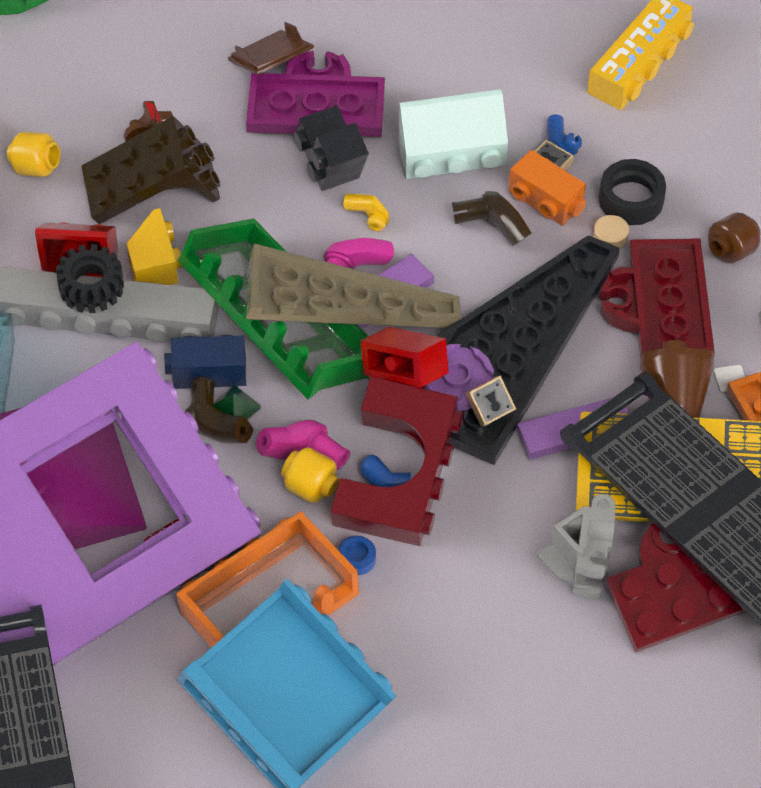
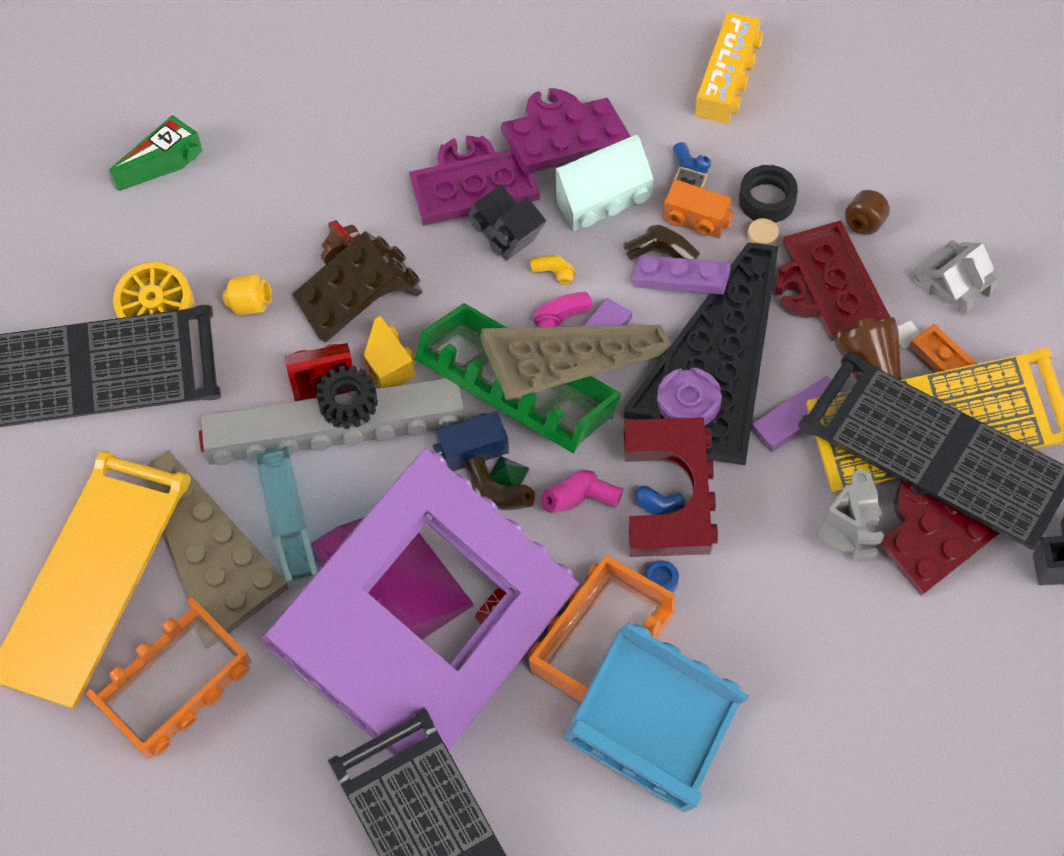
camera: 15 degrees left, 5 degrees up
(271, 50) = (418, 147): reddish brown piece -> none
(310, 475) = (598, 519): yellow head -> none
(404, 356) = (645, 393): red brick -> none
(430, 68) = (561, 130): none -> magenta plate
(490, 401) = (727, 411): tile -> none
(502, 250) = (681, 274): none -> medium lavender plate

